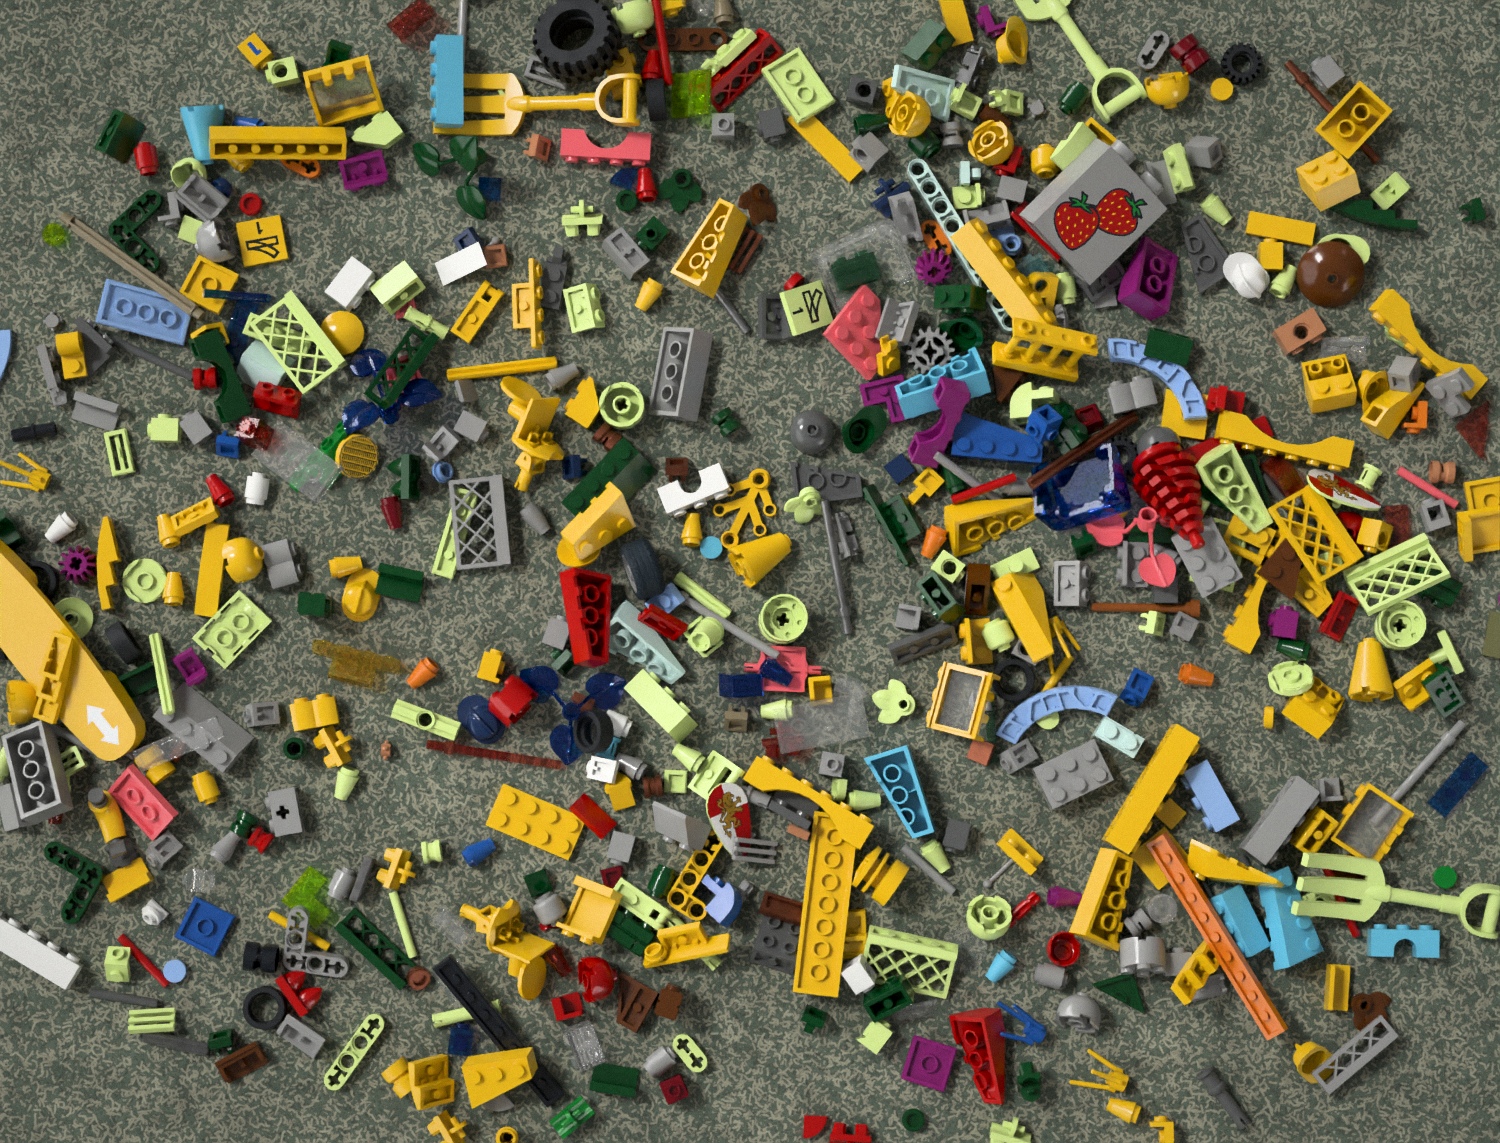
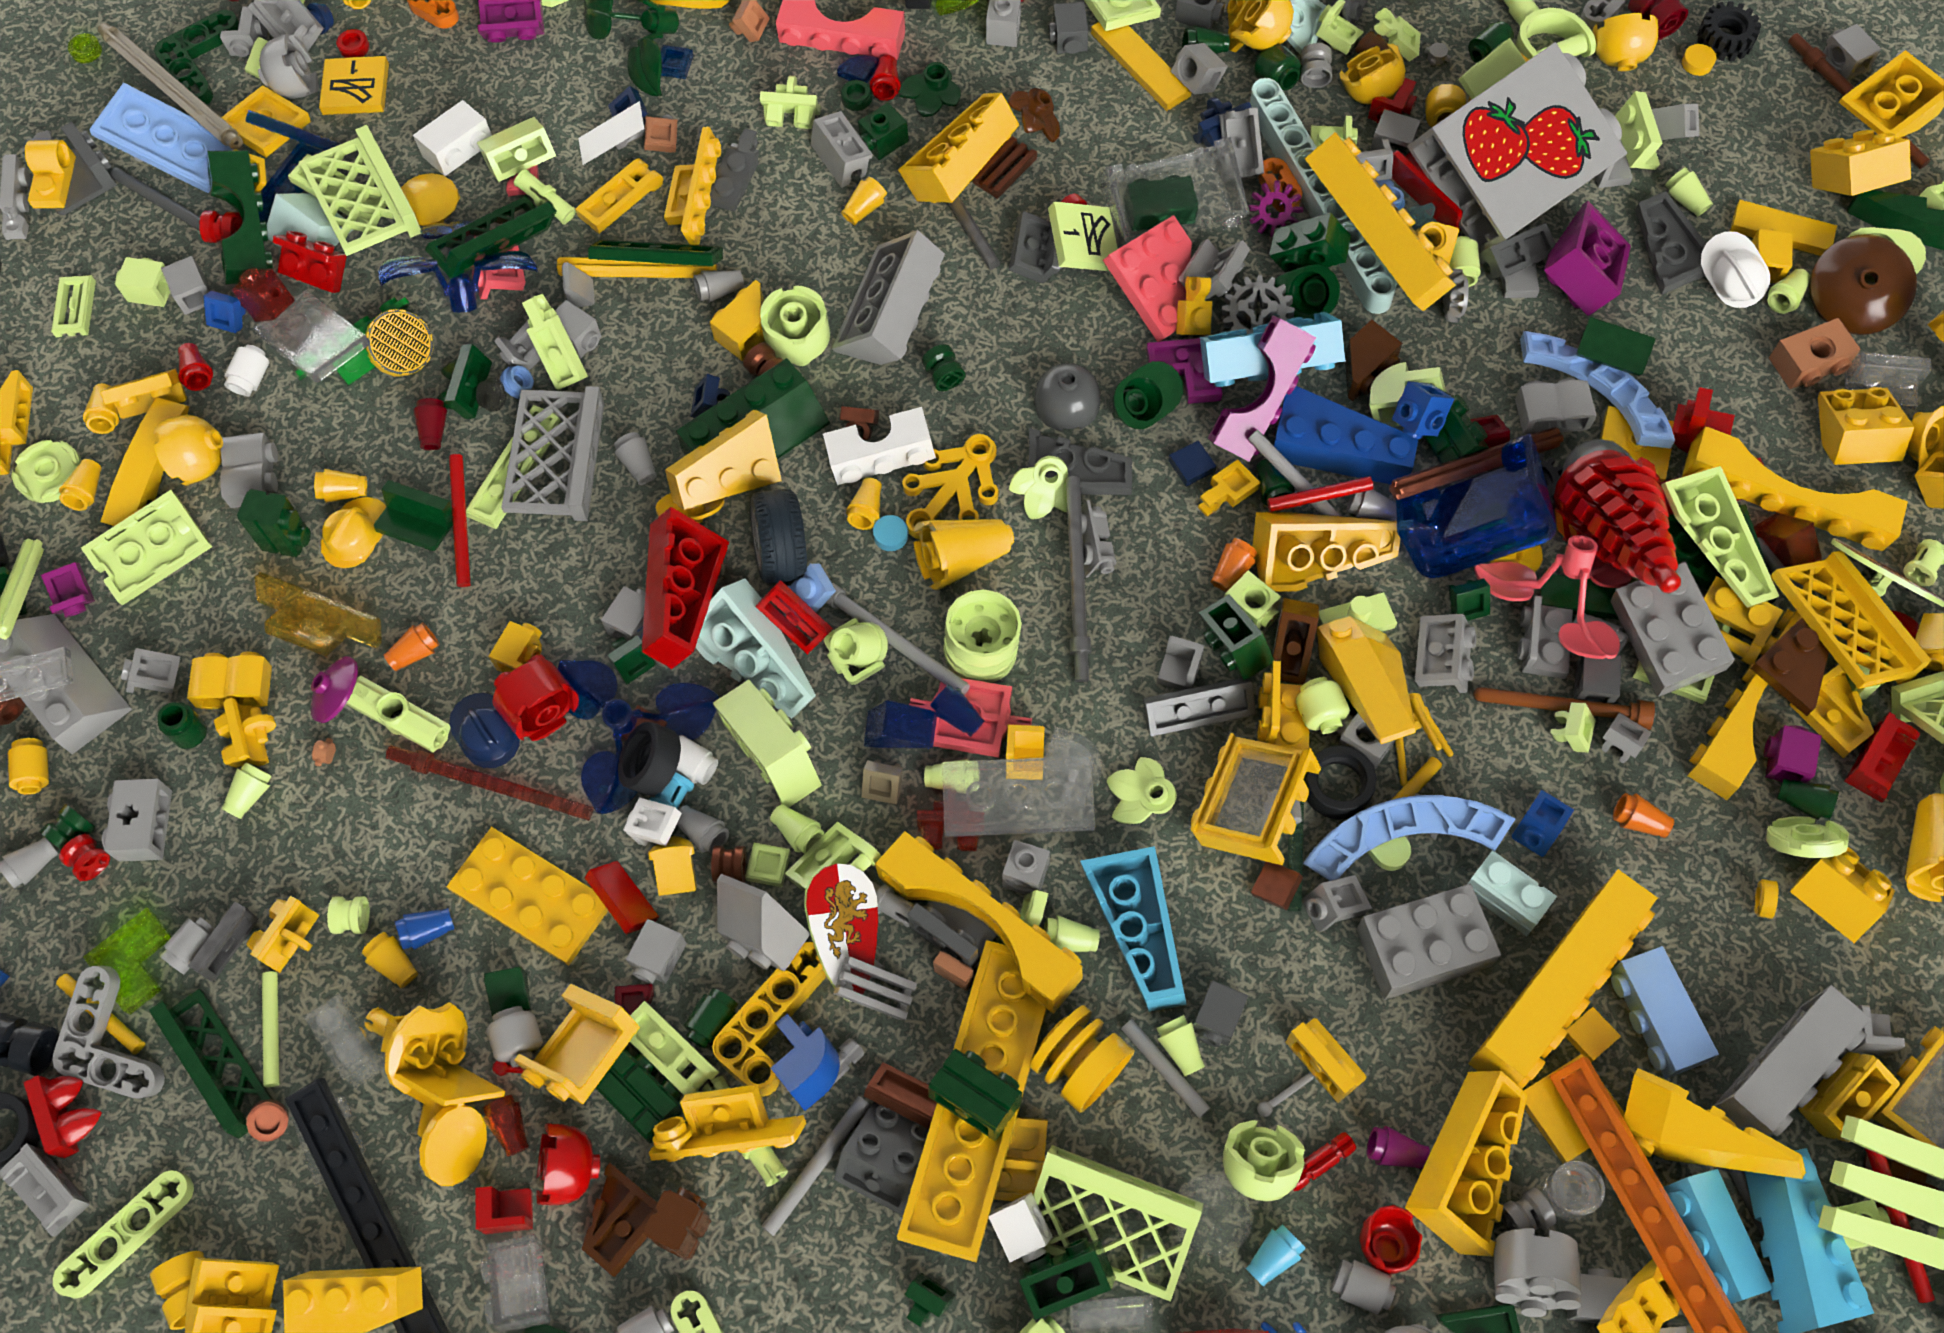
camera: 10 degrees right, 20 degrees down
(95, 411) = (60, 248): light grey panel -> none
(383, 710) = (333, 689): none -> magenta dish
(430, 579) = (459, 520): none -> red bar
(456, 1015) = (314, 1197): yellowish green pin -> none
(461, 1039) = (309, 1240): clear blue bracket -> none
(463, 874) = (389, 959): none -> yellow cone
(464, 446) = (553, 343): none -> yellowish green hinge
(514, 360) = (655, 252): none -> dark green tile
(532, 430) = (659, 335): yellow piece -> none
(584, 307) = (769, 205): yellowish green bracket -> none
(701, 595) = (863, 594): yellowish green axle -> none
(732, 964) = (815, 1166): none -> light grey bar
(824, 907) = (976, 1093): none -> dark green brick
(897, 521) = (1182, 528): dark green bracket -> none
(967, 174) = (1335, 110): light aqua tile -> none
(1040, 362) = (1430, 342): yellow fence -> none

